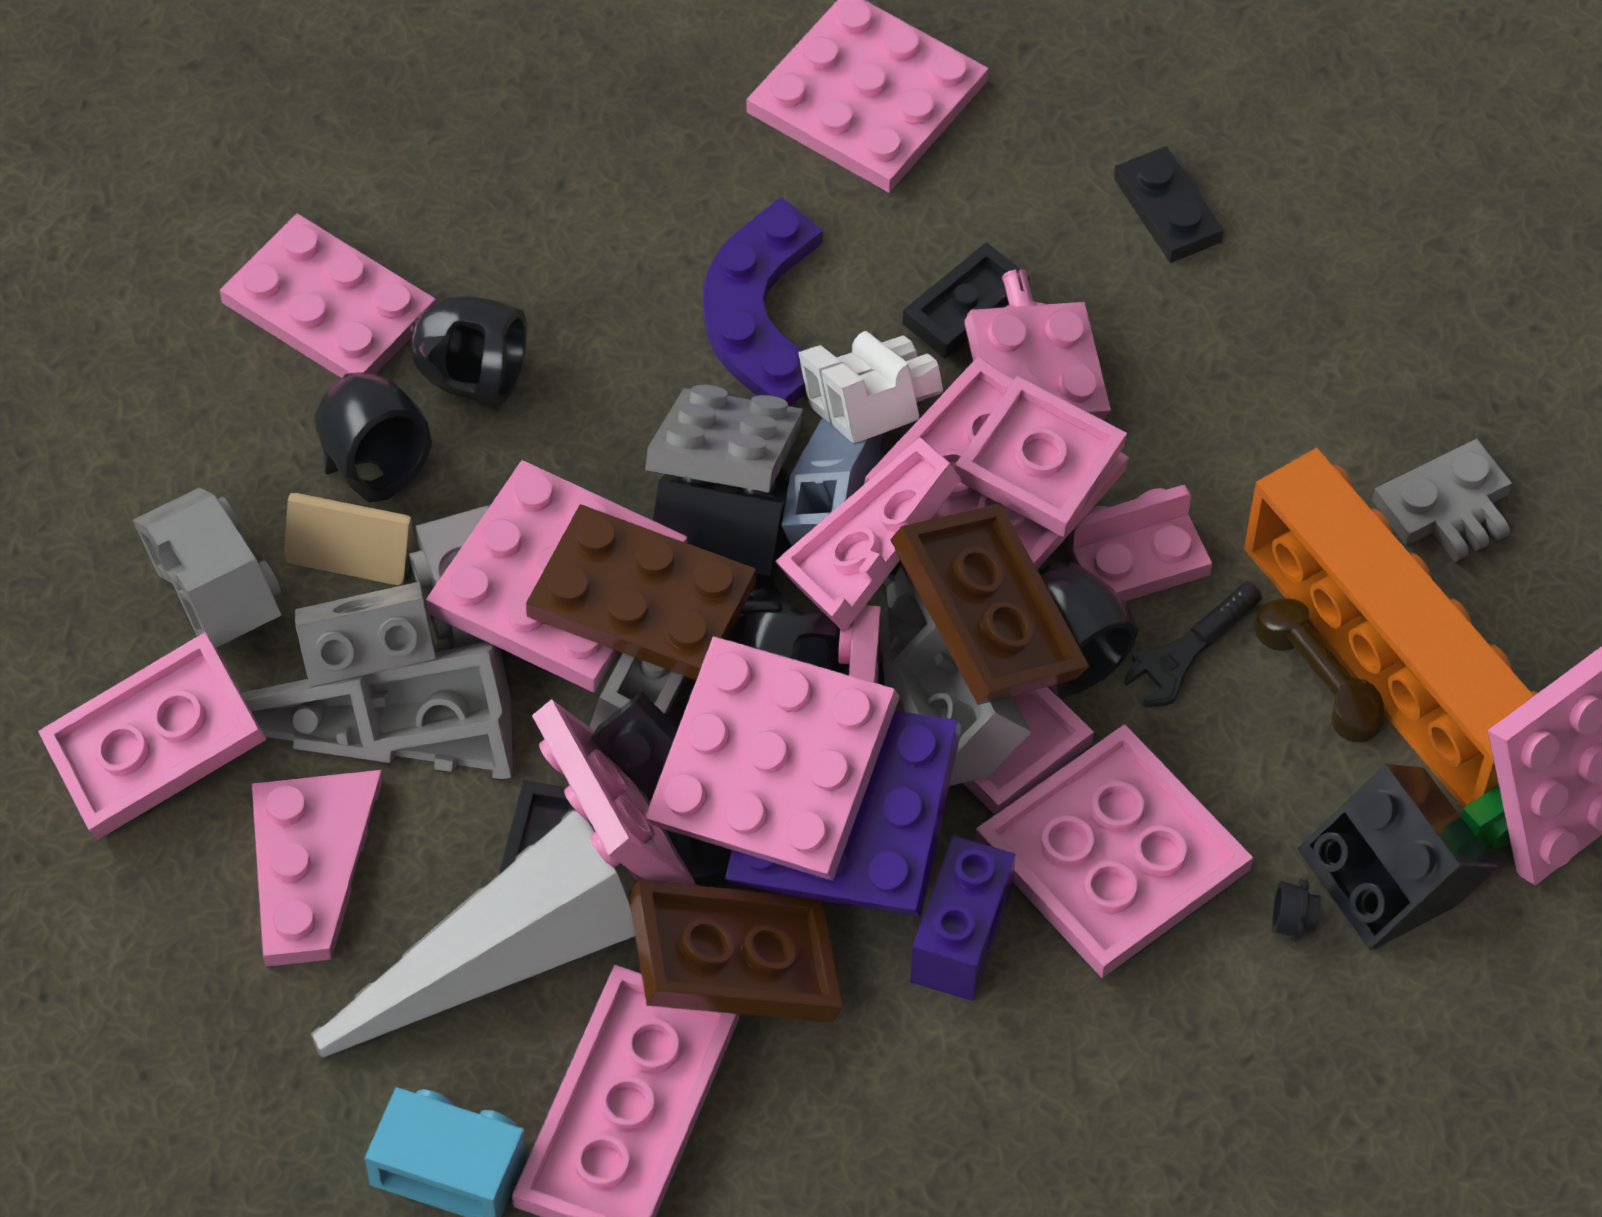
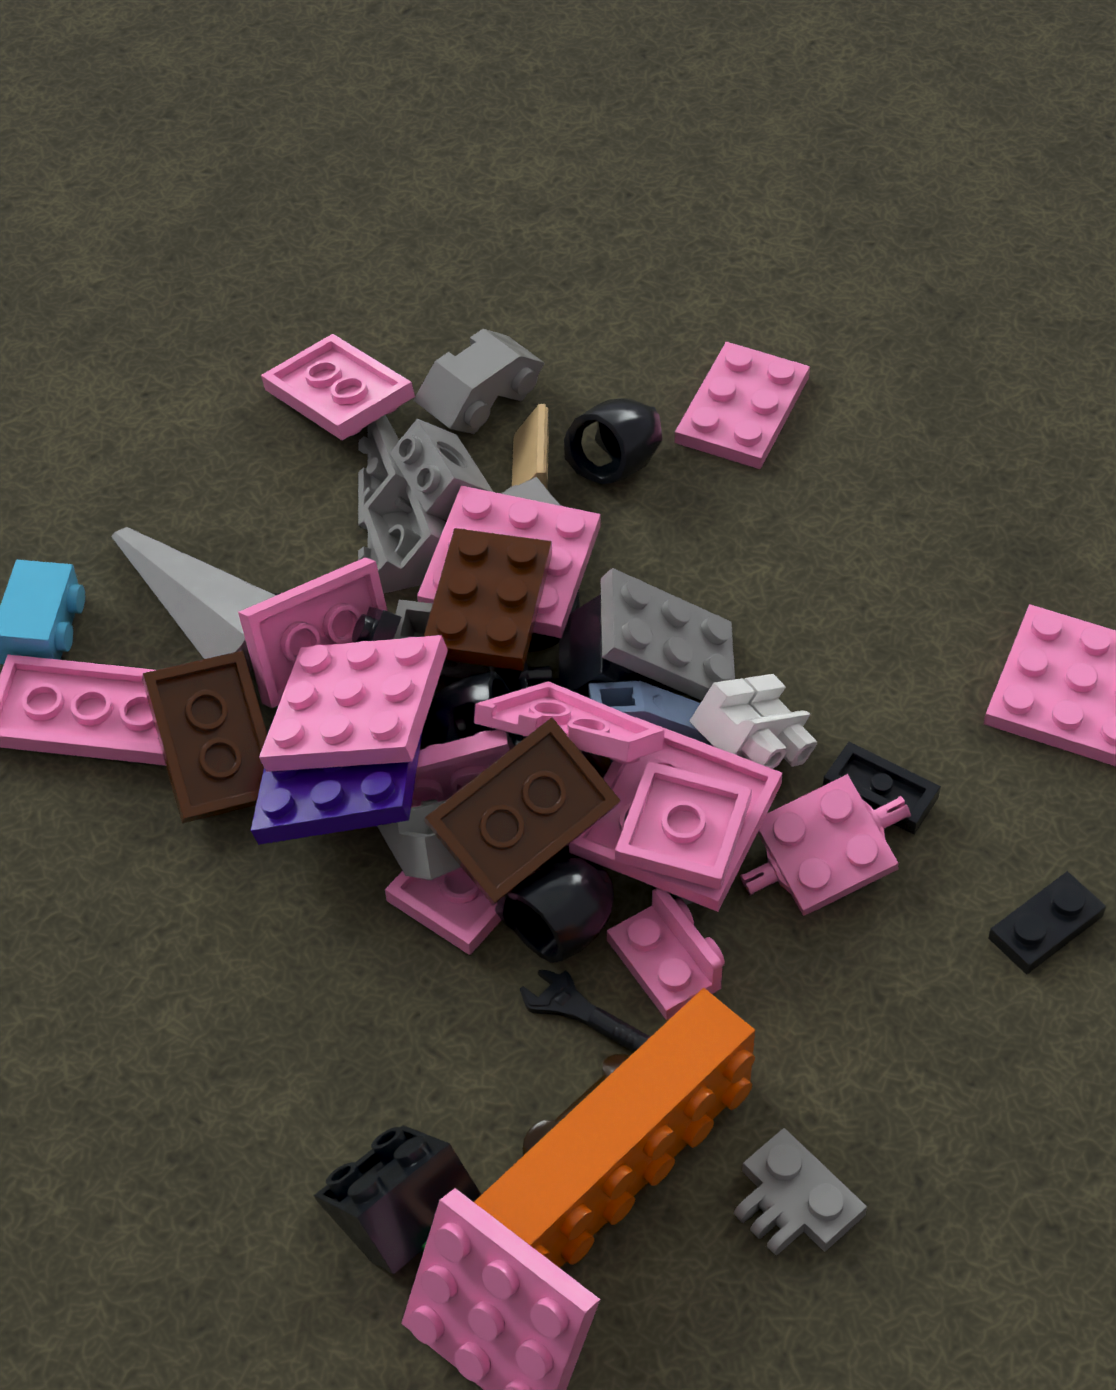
camera: 80 degrees right, 5 degrees down
(307, 858) = (275, 493): bright pink wing -> none
(471, 347) = (710, 480): black piece -> none
(736, 298) = (842, 639): dark purple plate -> none
(962, 918) = (275, 882): dark purple brick -> none
(1115, 850) = (366, 983): bright pink plate -> none
(1295, 909) = (334, 1125): black plate -> none

